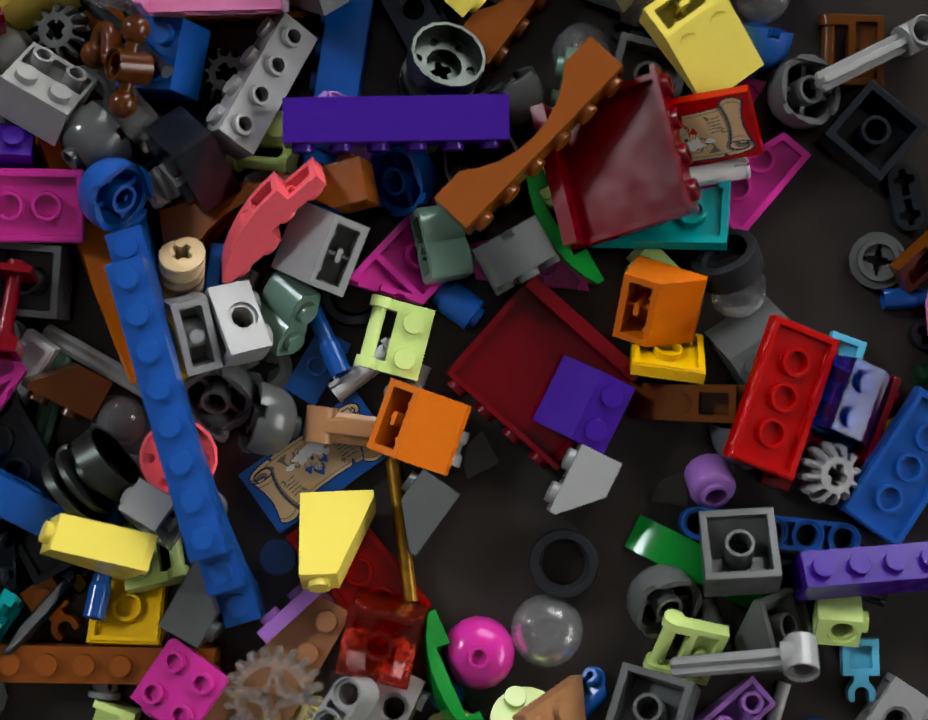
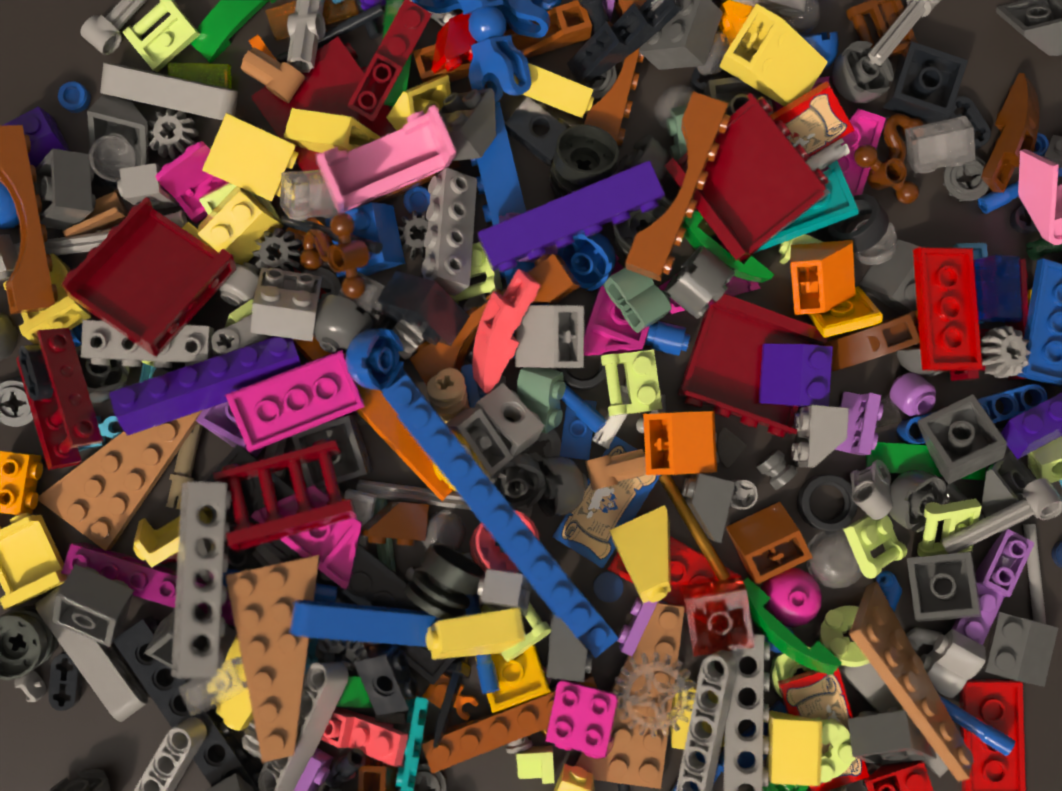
camera: 30 degrees left, 0 degrees up
(242, 35) = (417, 200): none -> blue tile
(467, 518) = (745, 493): none -> light grey wheel
(476, 580) = (768, 542): none -> dark orange slope
(521, 501) = (774, 466): none -> dark grey wheel
(595, 617) = (867, 535): none -> yellowish green plate
(616, 568) = (872, 489): none -> light grey piece
(633, 486) = (862, 419): none -> medium lavender bracket
(769, 189) = (893, 170): none -> reddish brown piece
(859, 210) = (940, 144): none -> clear brick

